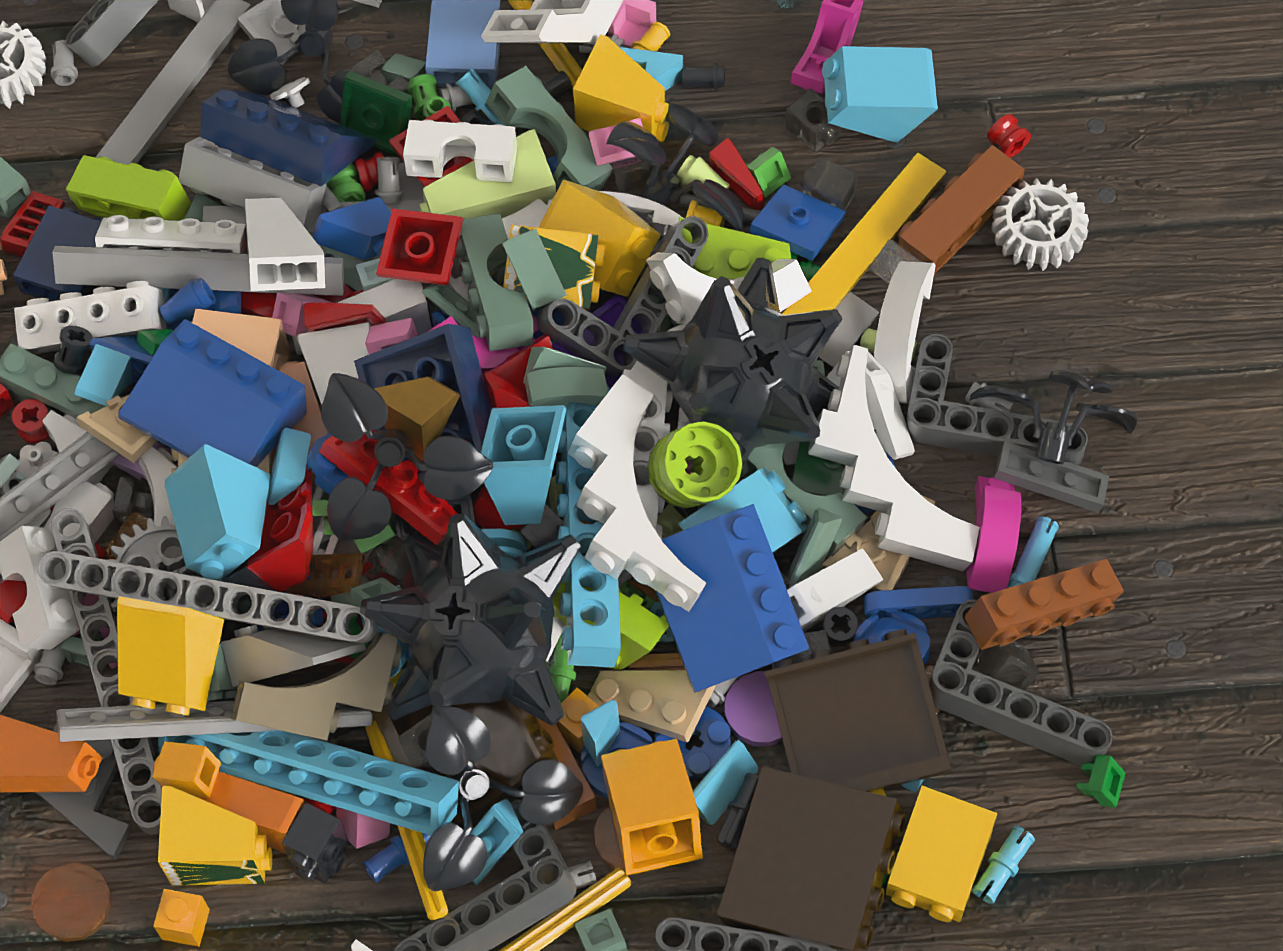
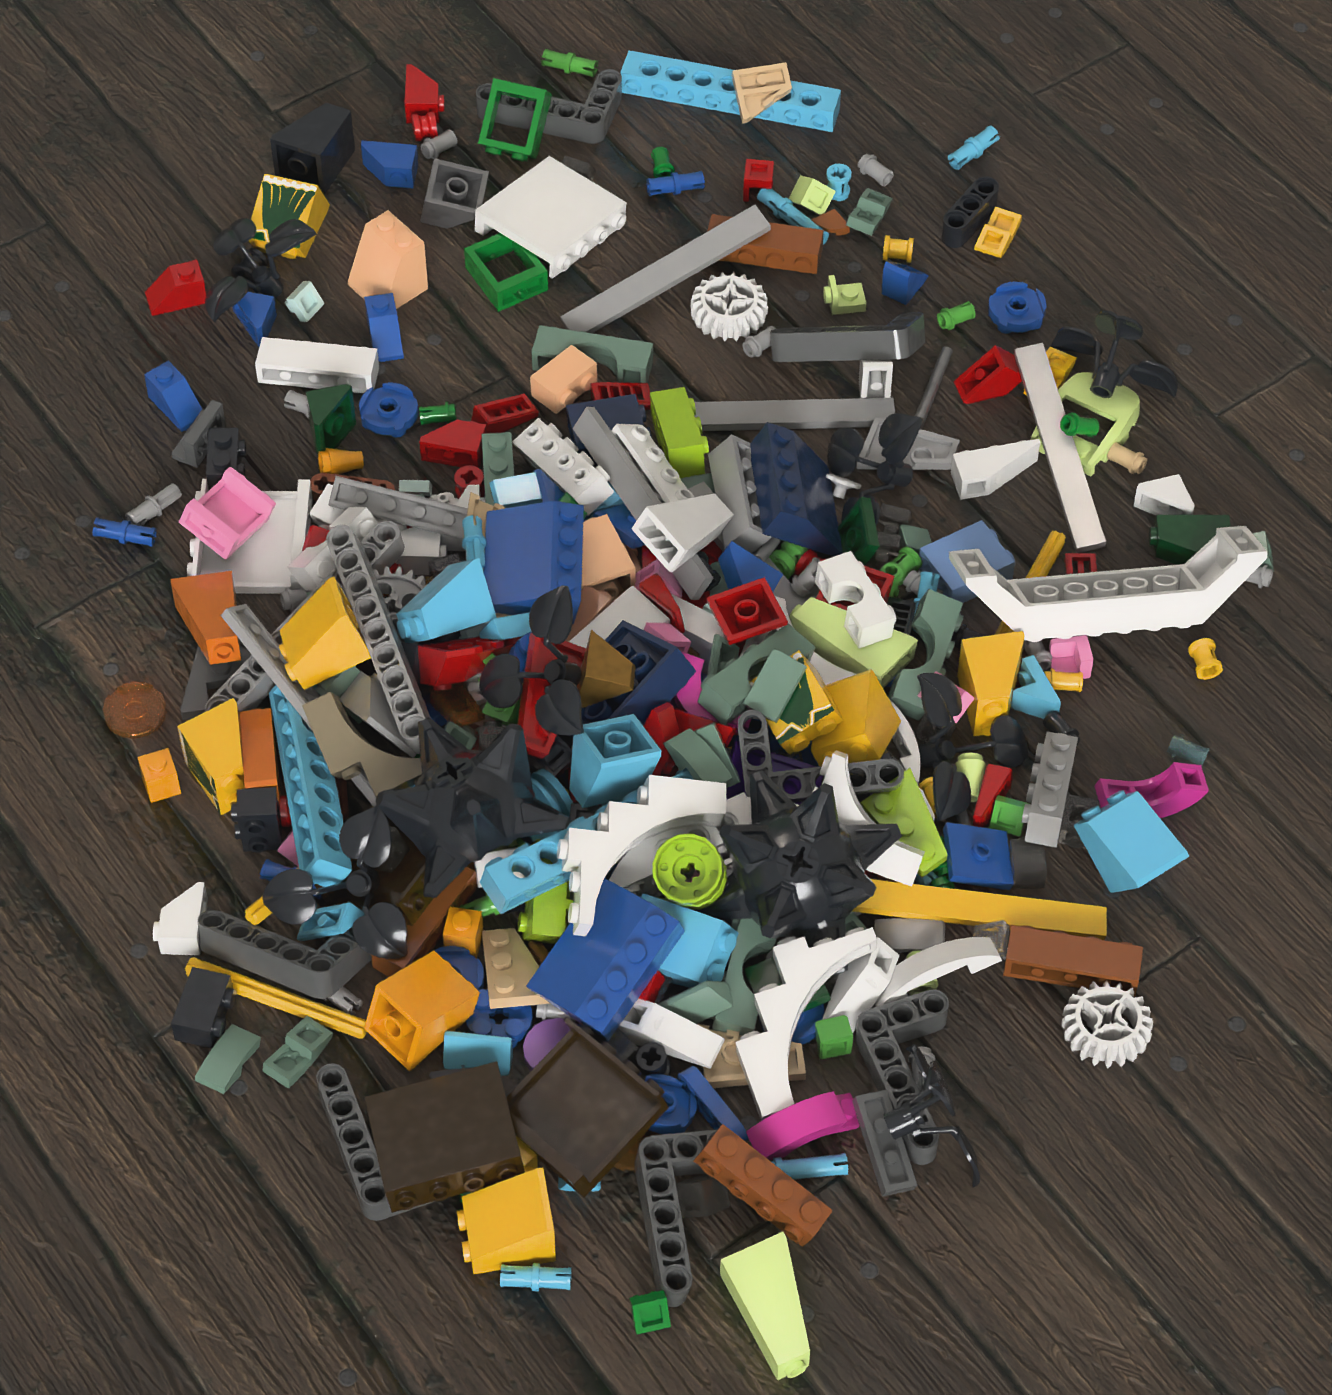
camera: 55 degrees right, 10 degrees down
(72, 349) = (531, 460): black bush -> none
(151, 445) = (473, 539): none -> medium azure axle
(187, 768) = (258, 708): light orange brick -> none
(190, 297) = (619, 510): blue cone -> none
(600, 729) = (453, 939): medium azure slope -> none
(775, 118) = (1051, 788): none -> light grey brick
(911, 454) = (833, 1037): none -> bright green slope
(1009, 135) = (1171, 962): red wheel -> none
(1159, 670) = (768, 1299): none -> yellowish green slope

